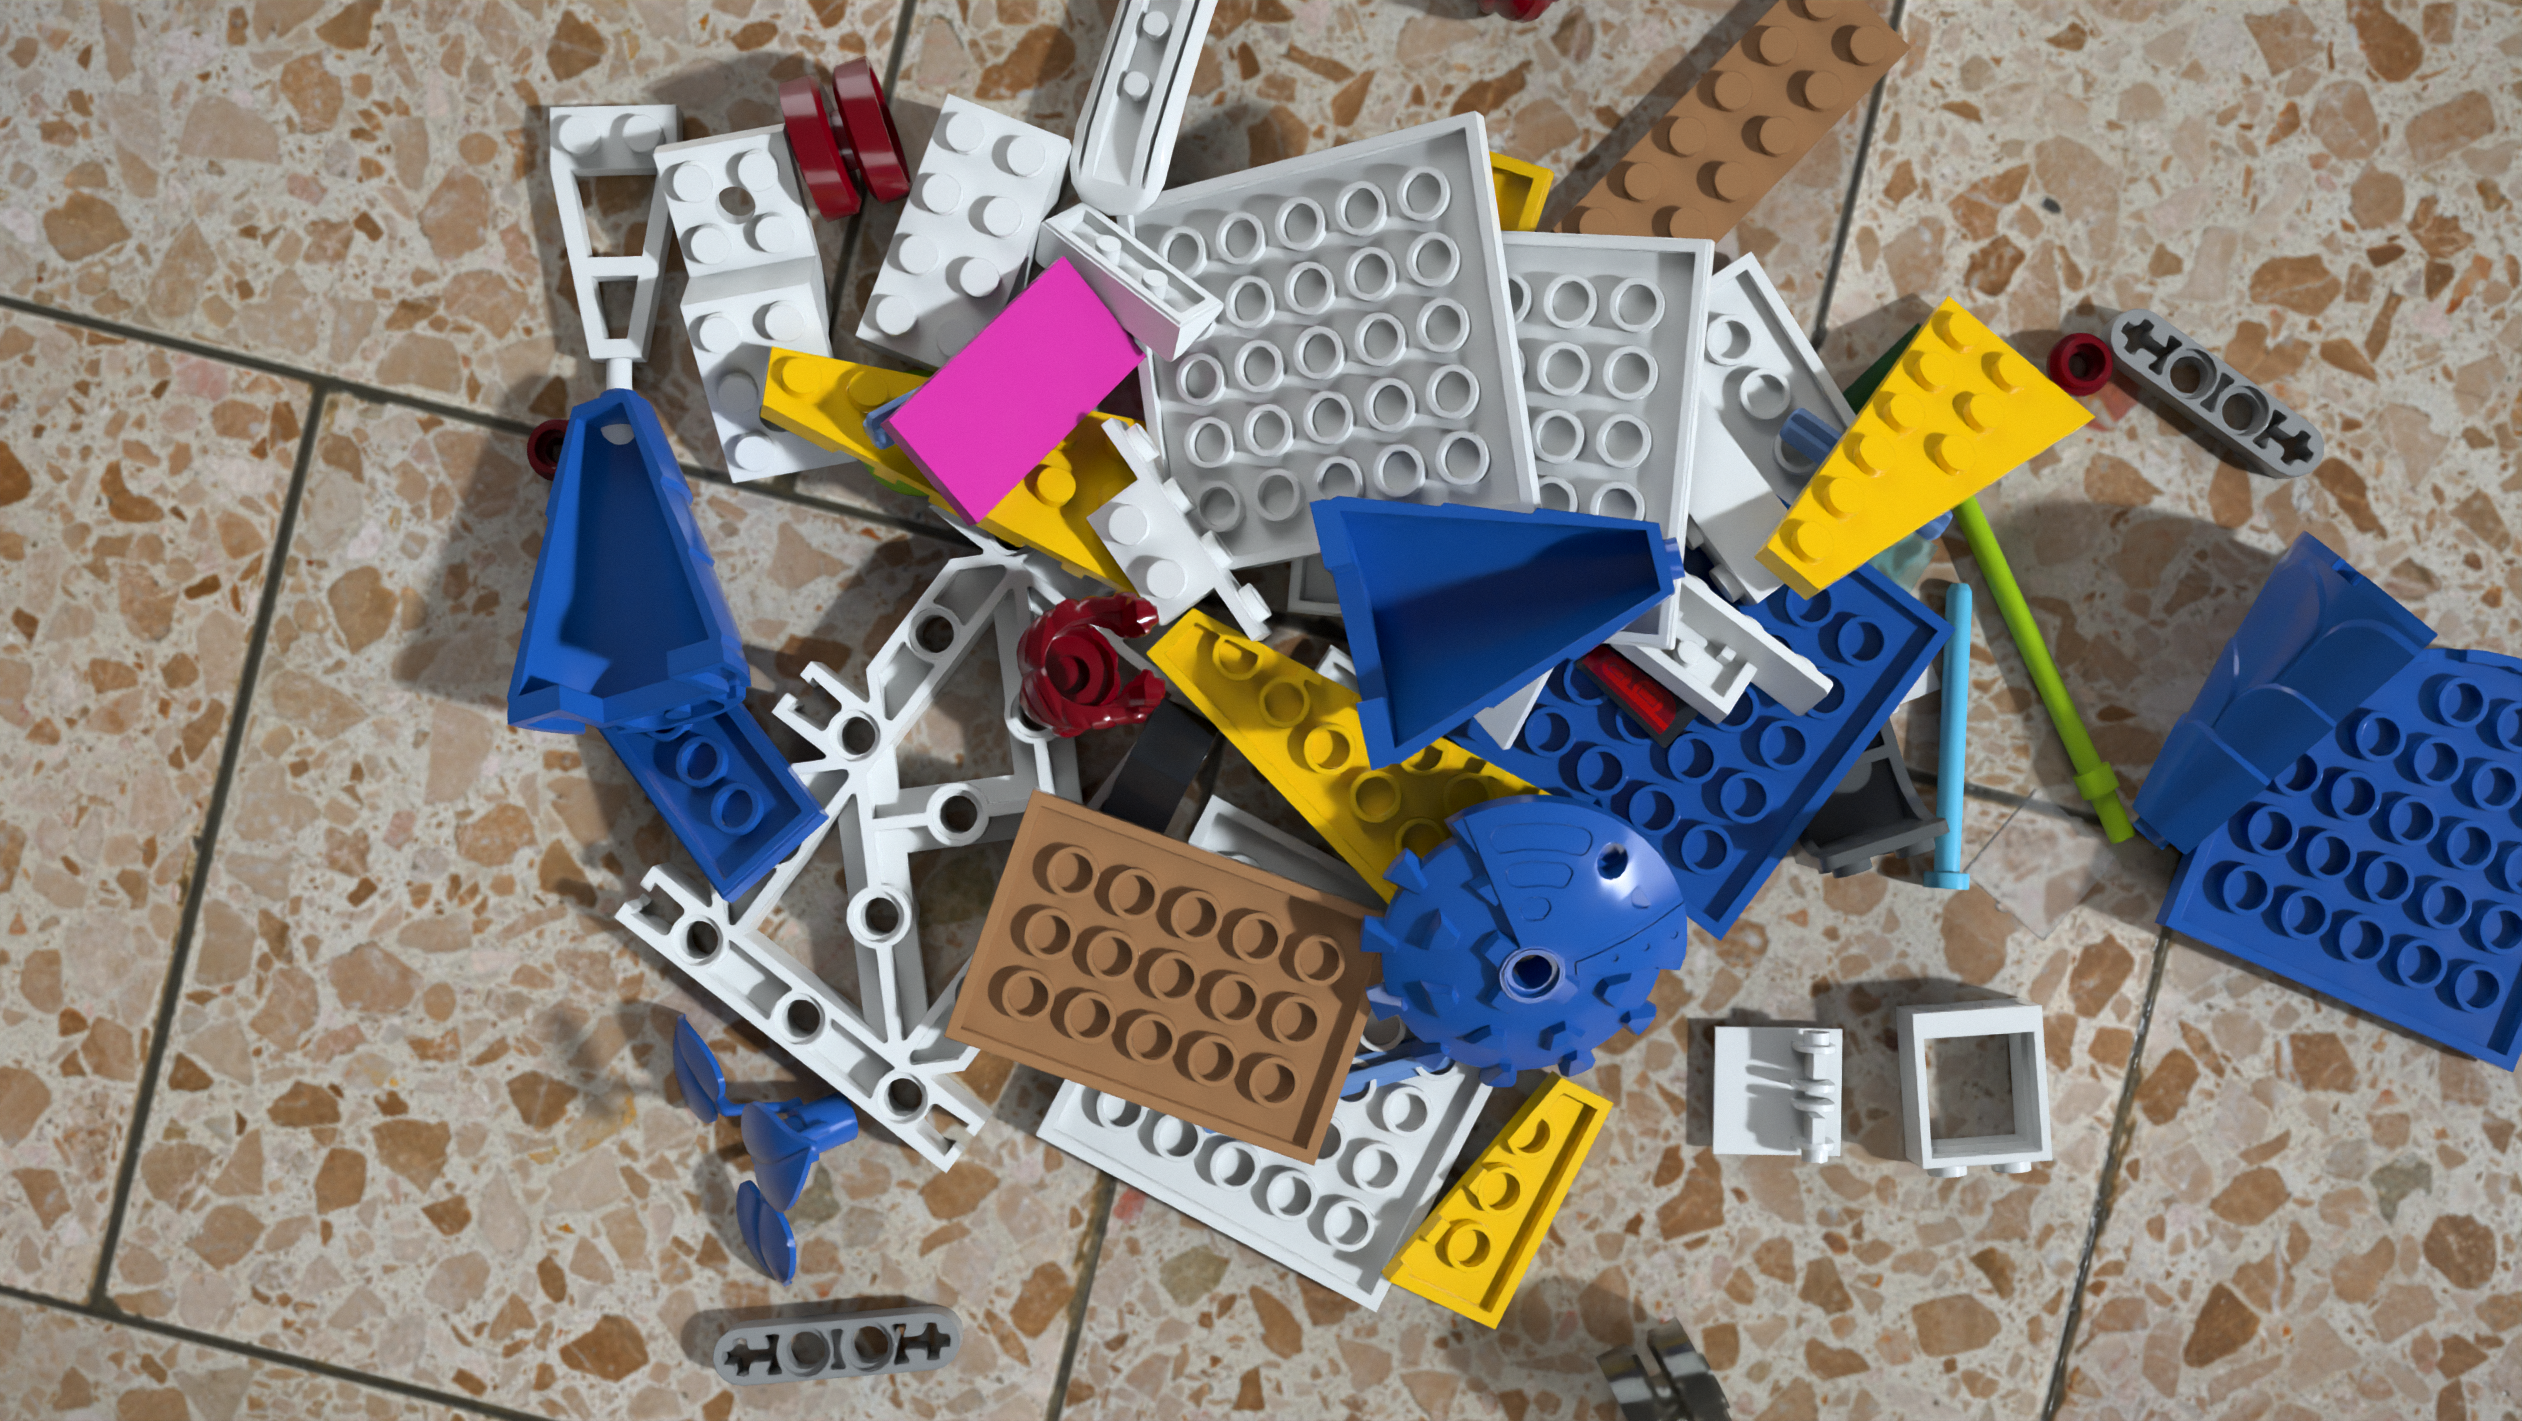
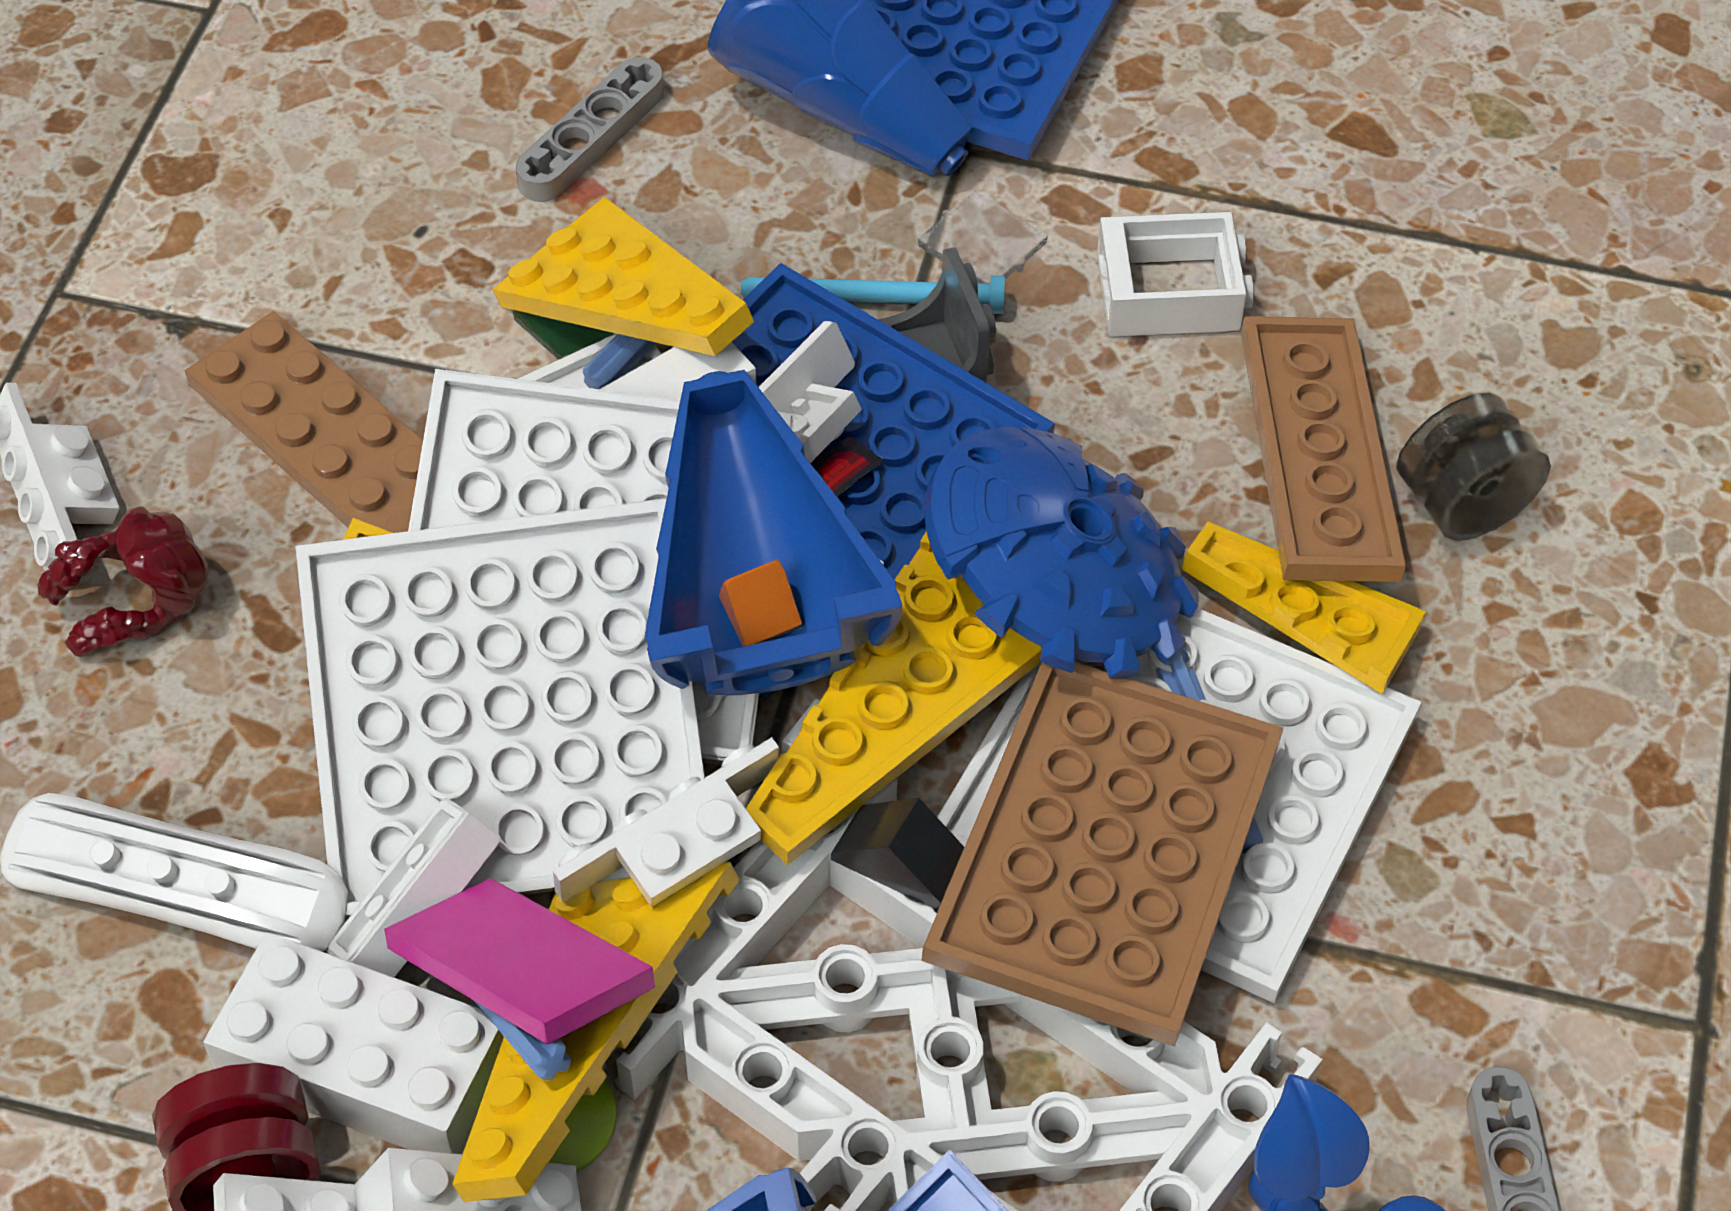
camera: 90 degrees left, 35 degrees down
(1072, 667) = (805, 920): dark red hair -> none
(1422, 617) = (760, 604): none -> orange slope
(1713, 1235) = (1321, 450): none -> medium nougat plate
(1777, 1091) = (1189, 409): white hinge -> none
(2093, 778) = (908, 201): lime bar -> none
(2097, 361) = (558, 205): dark red plate -> none

